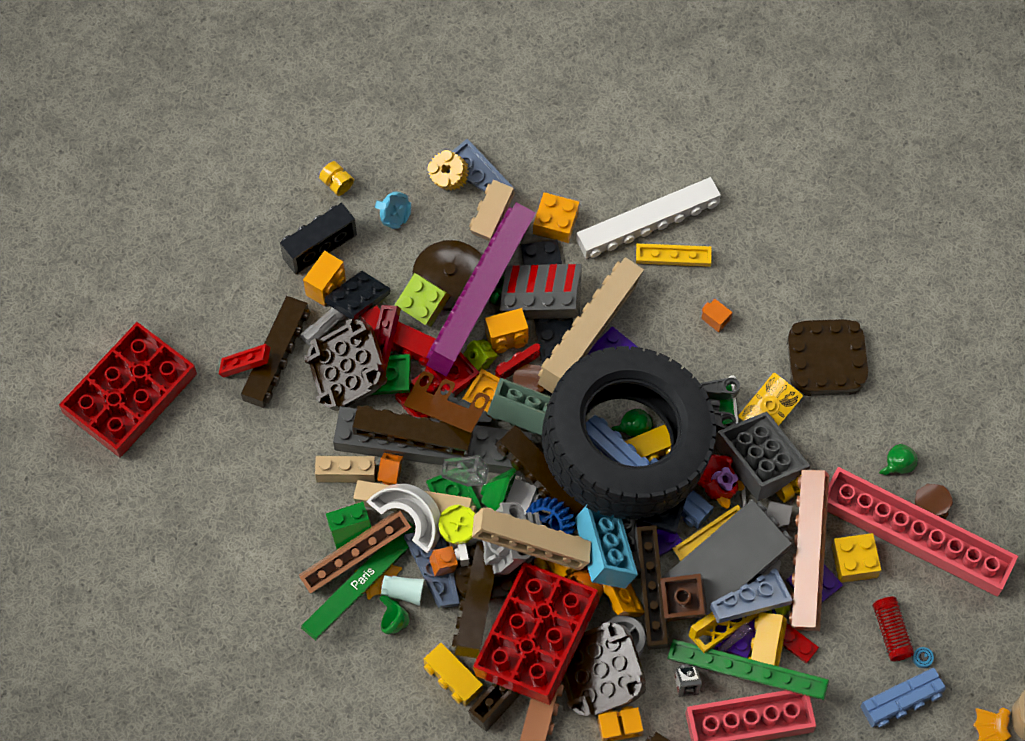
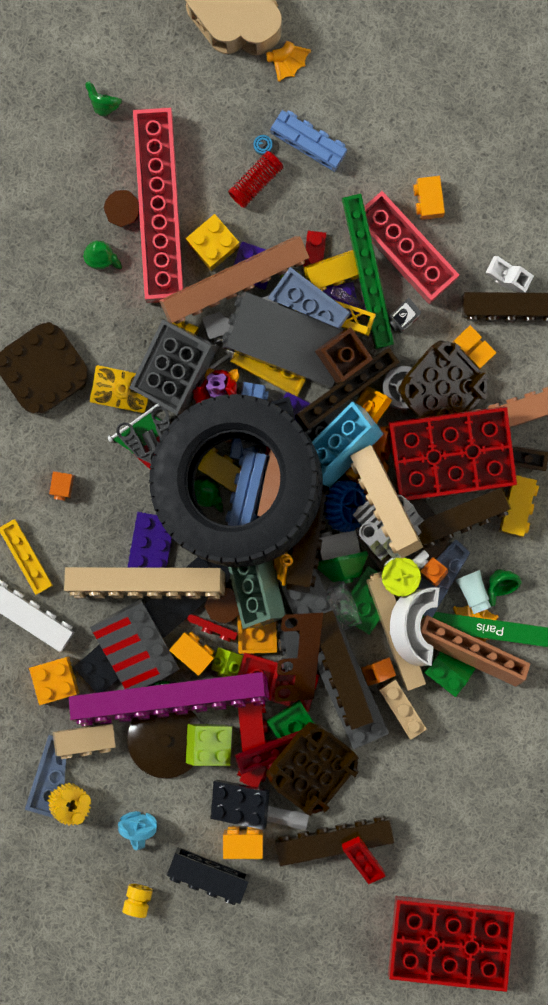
camera: 120 degrees left, 20 degrees up
(534, 435) = (281, 564): none -> light orange arm

